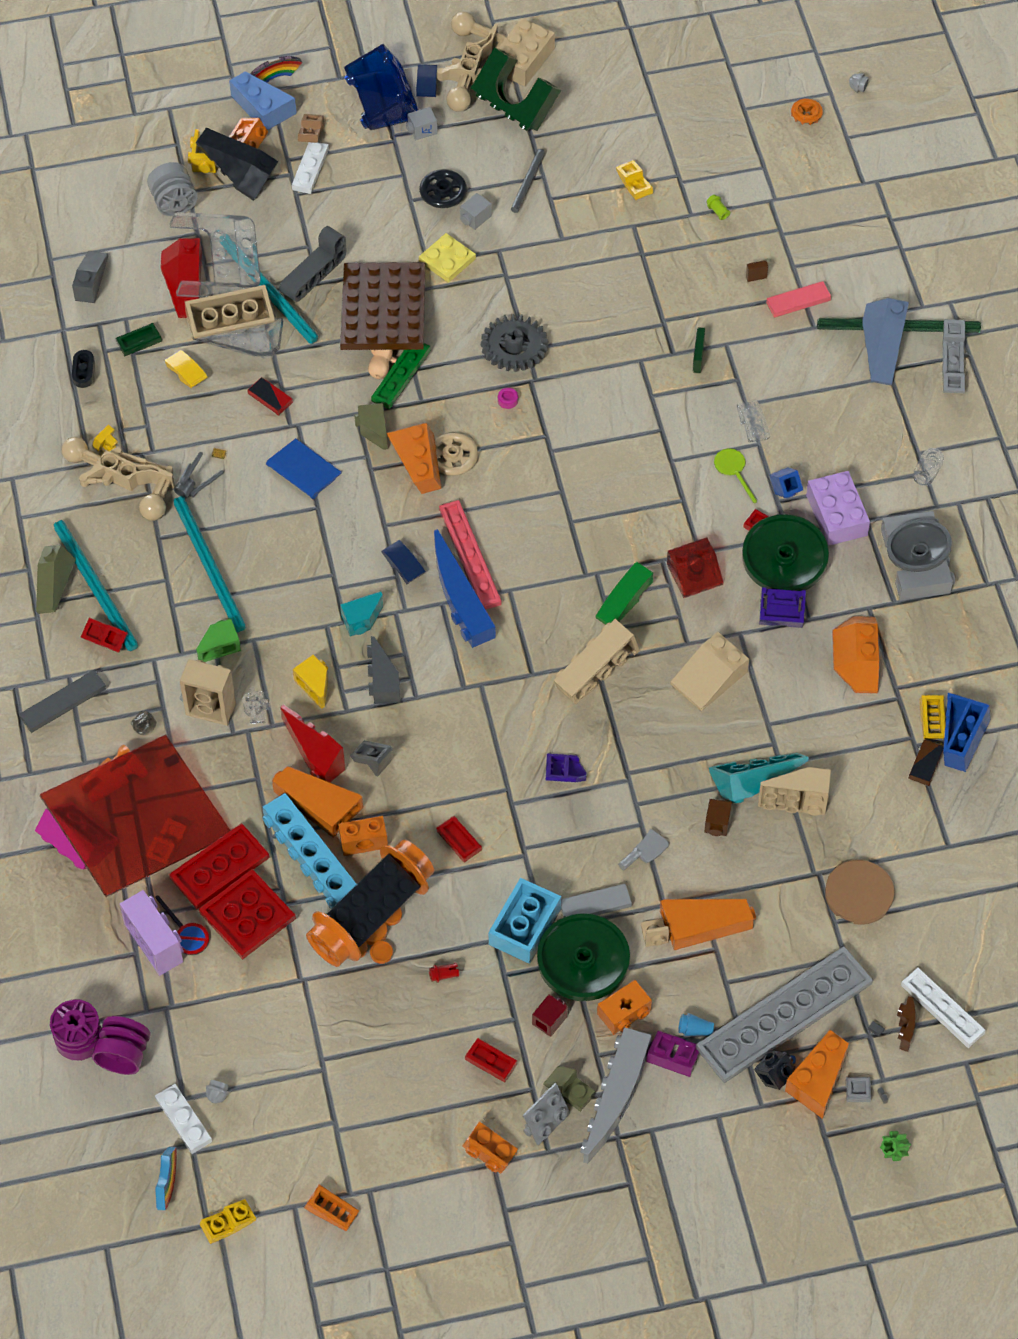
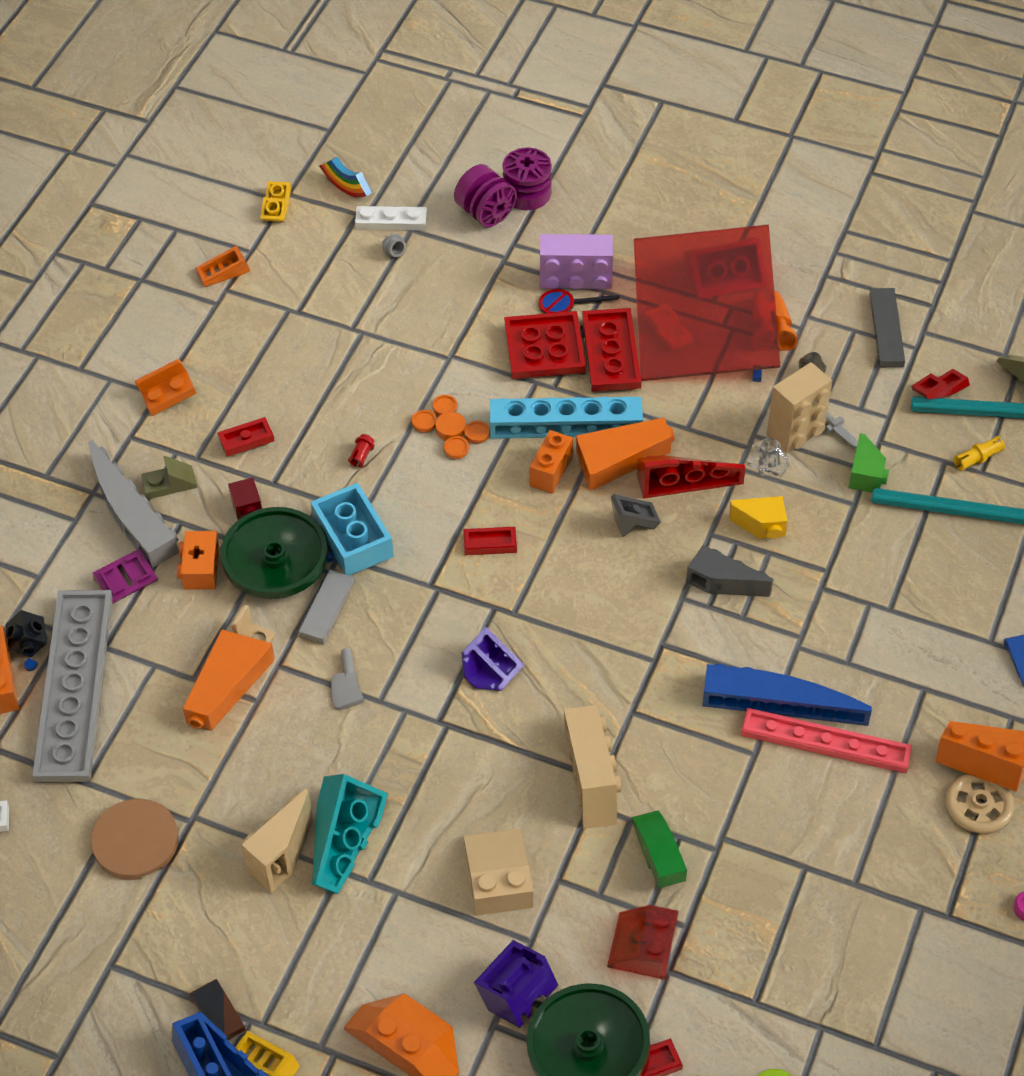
camera: 125 degrees right, 5 degrees down
(153, 584) = (979, 453): none -> yellow pin
(361, 613) = (813, 595): teal slope -> none
(370, 903) = (472, 432): brick -> none
(404, 561) = (858, 669): dark blue slope -> none
(545, 1114) = (154, 439): light grey hinge -> none
(694, 1026) = (131, 604): dark azure cone -> none
(718, 817) = (322, 759): reddish brown brick -> none

